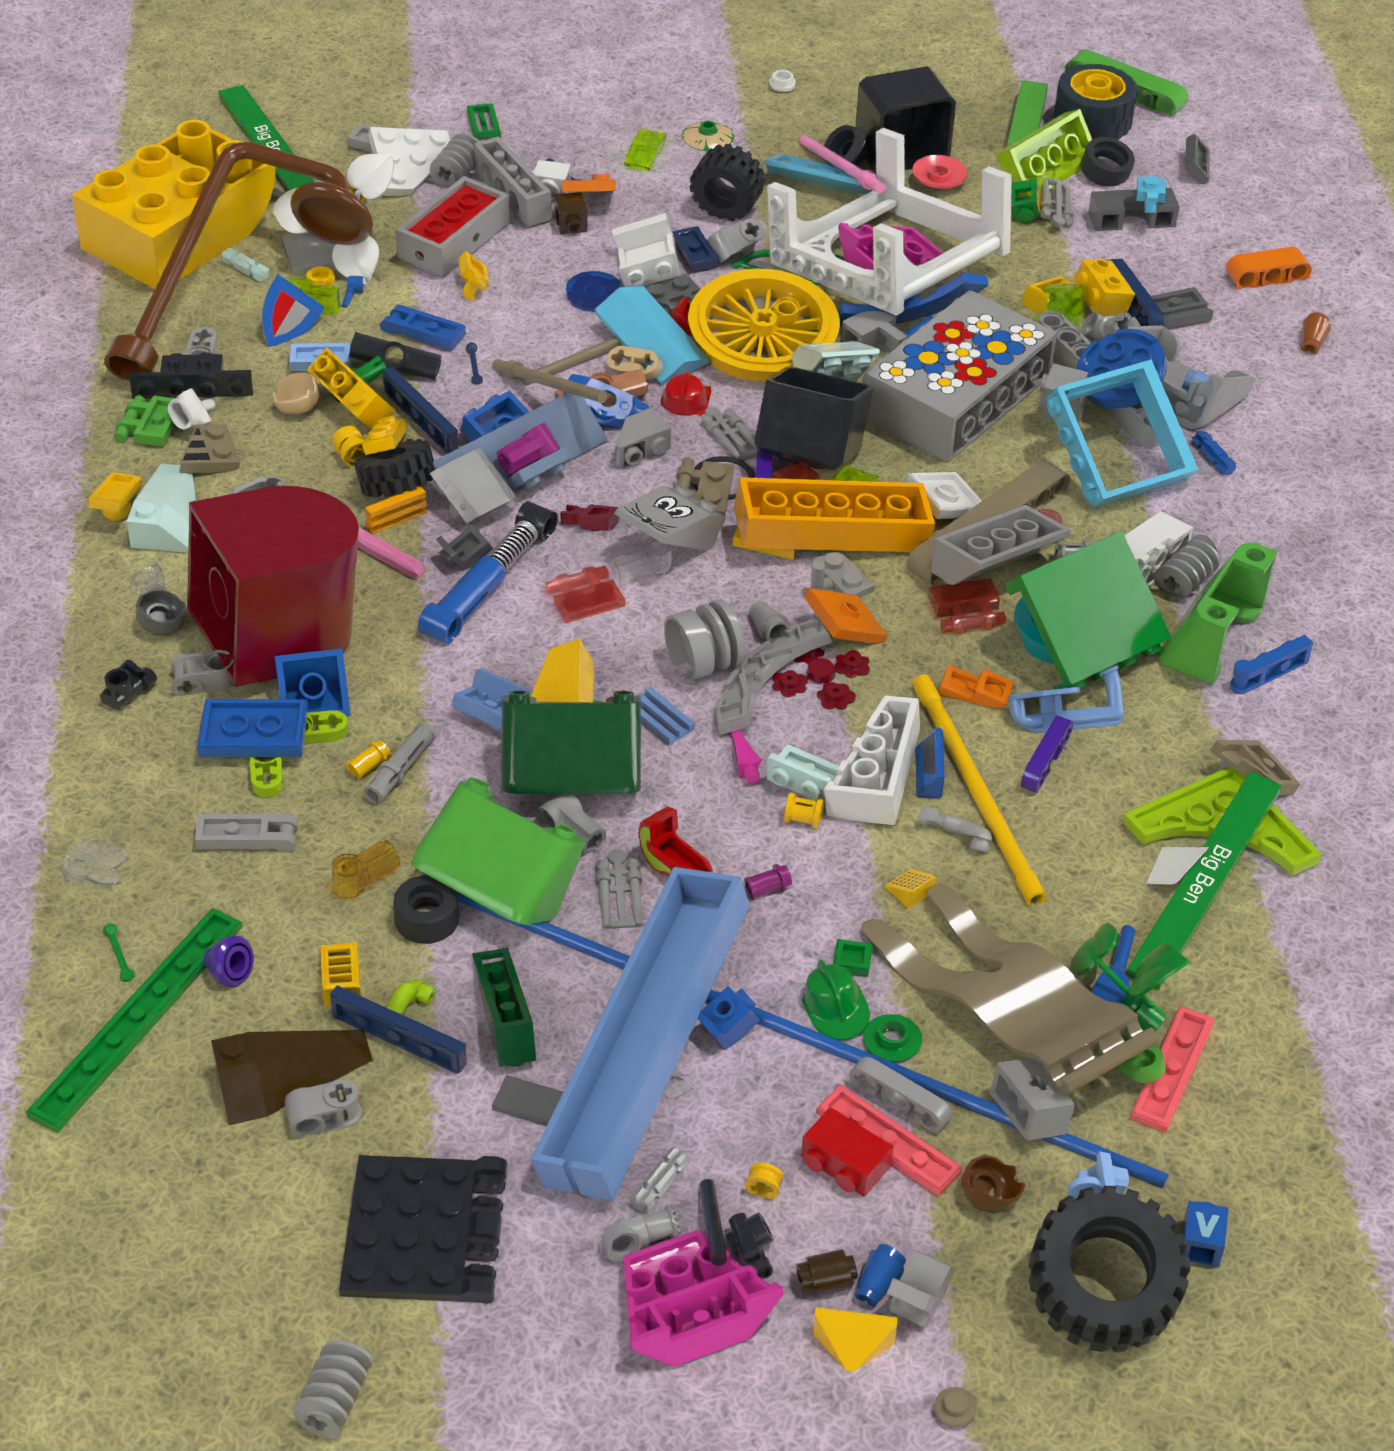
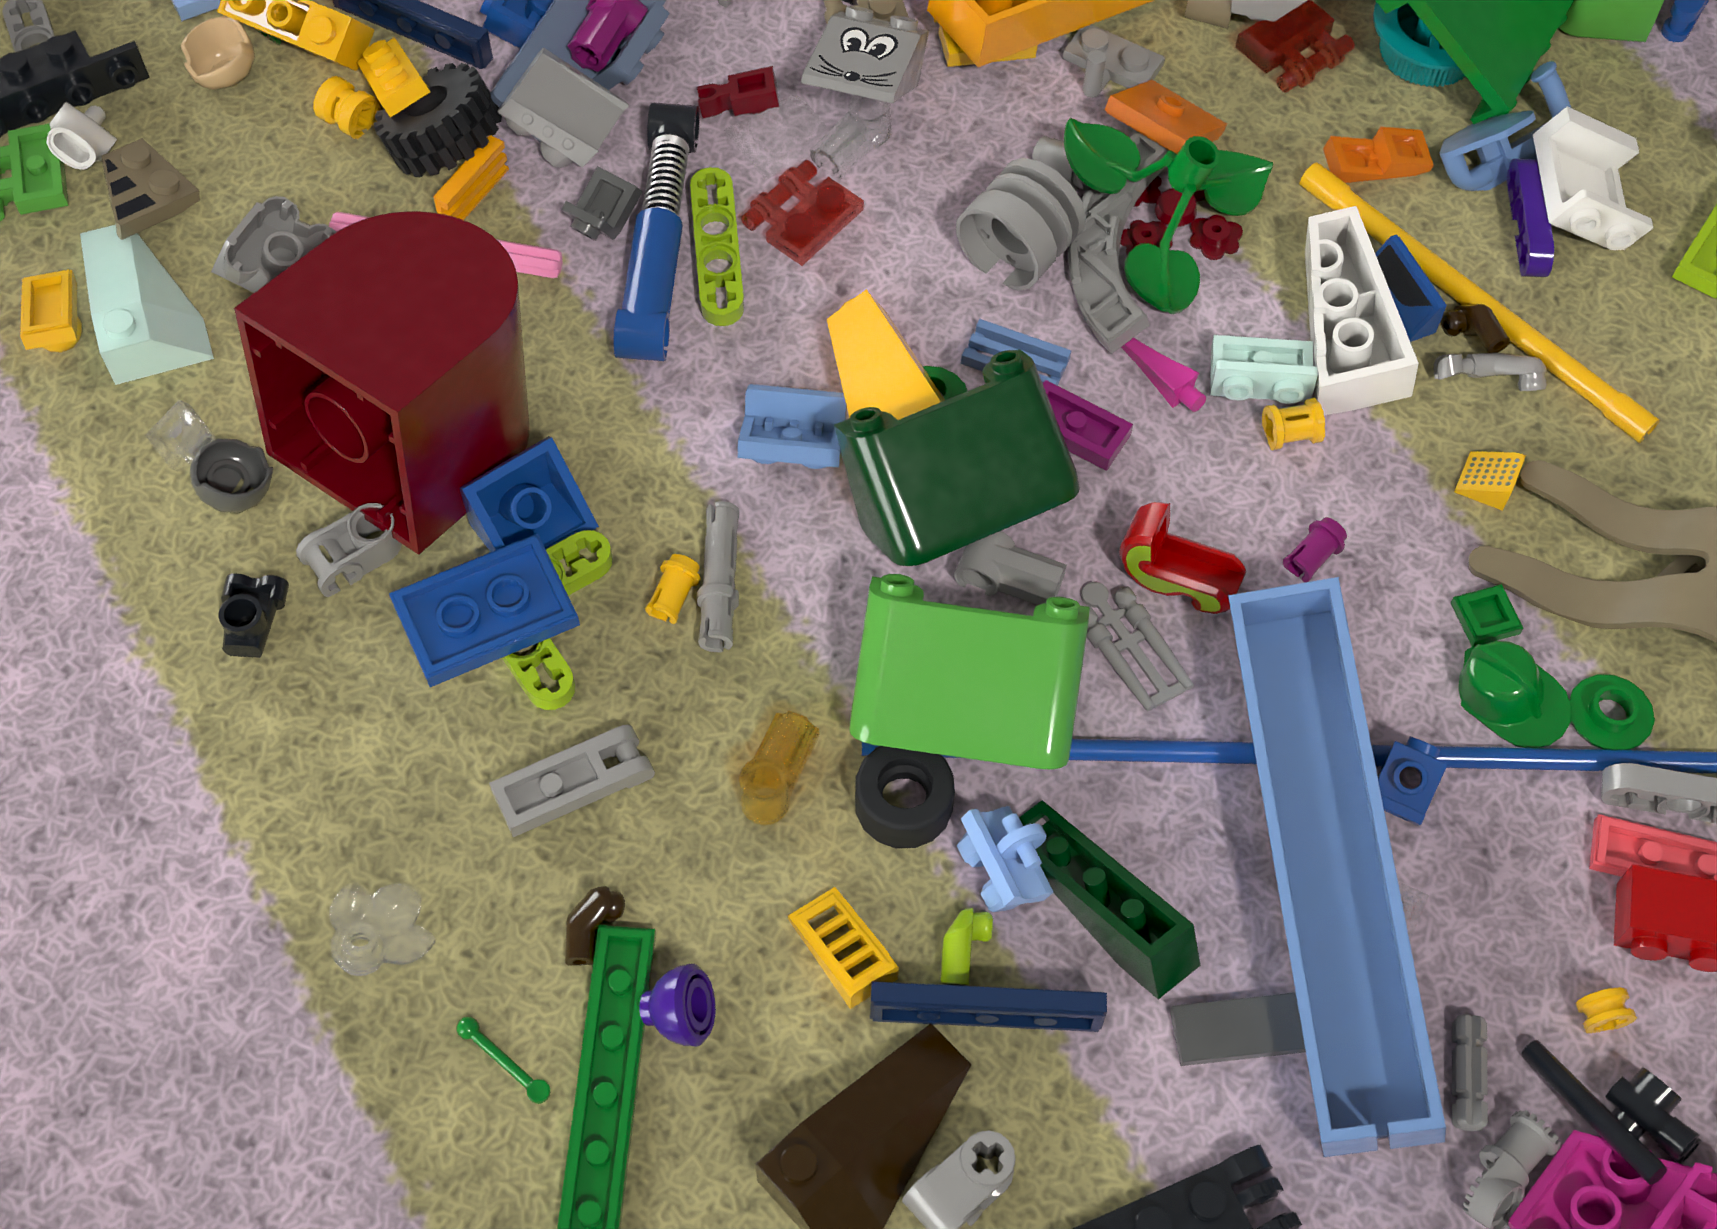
camera: 25 degrees left, 15 degrees up
(217, 897) = (585, 918): none -> dark brown arm
(459, 961) = (1009, 856): none -> light blue hips
(519, 594) = (719, 246): none -> lime beam
(669, 763) = (1087, 428): none -> magenta plate
(785, 621) = (1230, 181): none -> green plant
(966, 800) = (1476, 321): none -> dark brown arm
(1097, 743) = (1582, 179): none -> white panel

